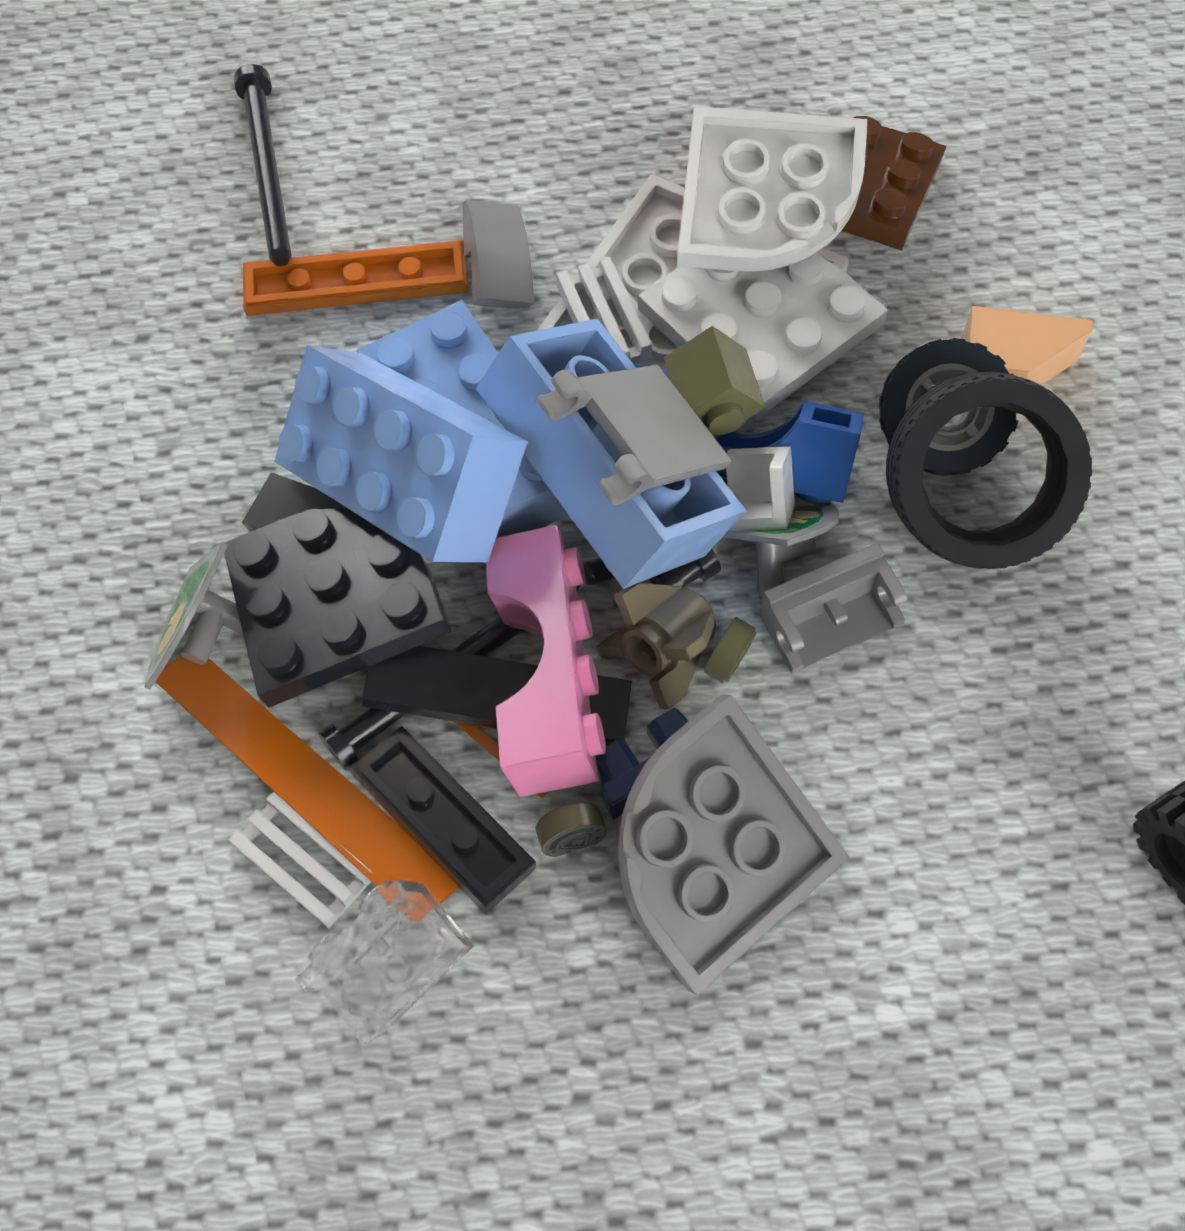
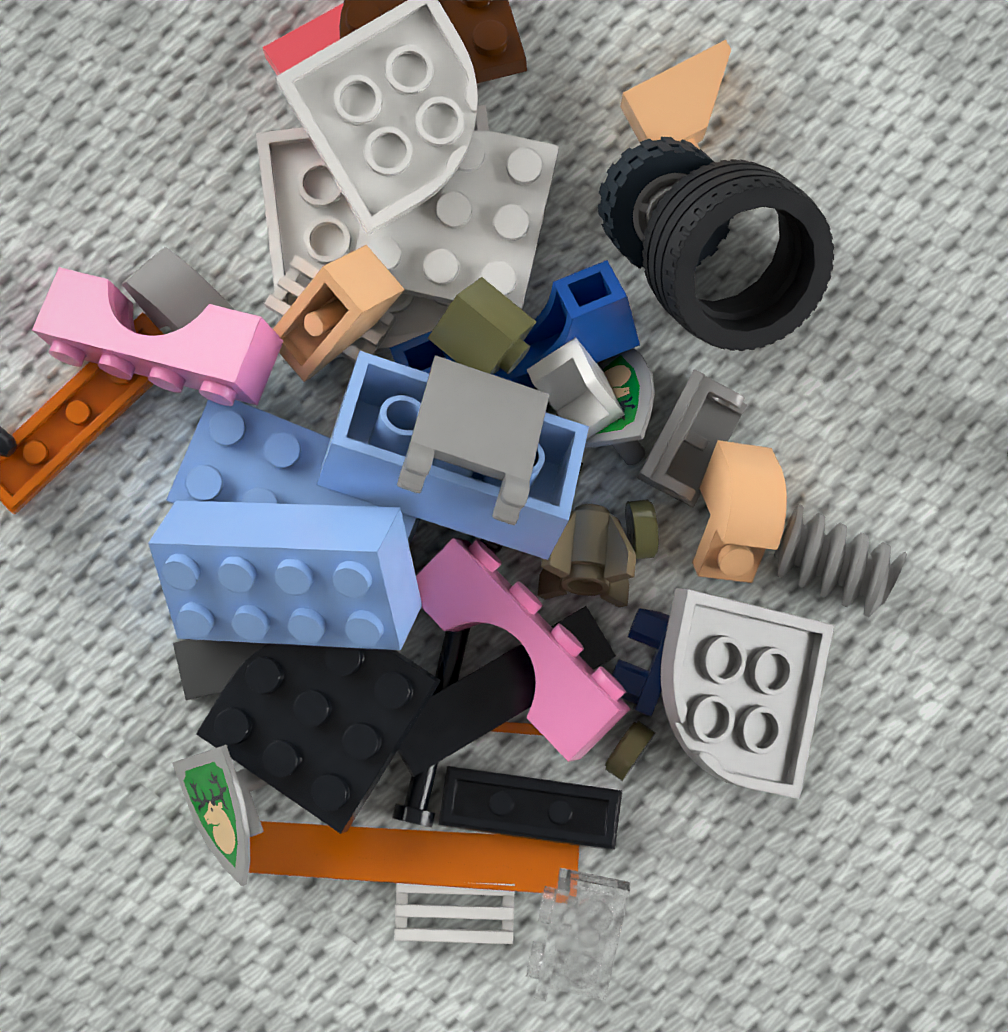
camera: 40 degrees left, 20 degrees up
(481, 266) = (218, 353): none -> bright pink arch
(613, 283) = (336, 310): none -> light nougat slope
(830, 693) = (746, 511): none -> light nougat brick
(892, 802) = (838, 562): none -> light grey piece

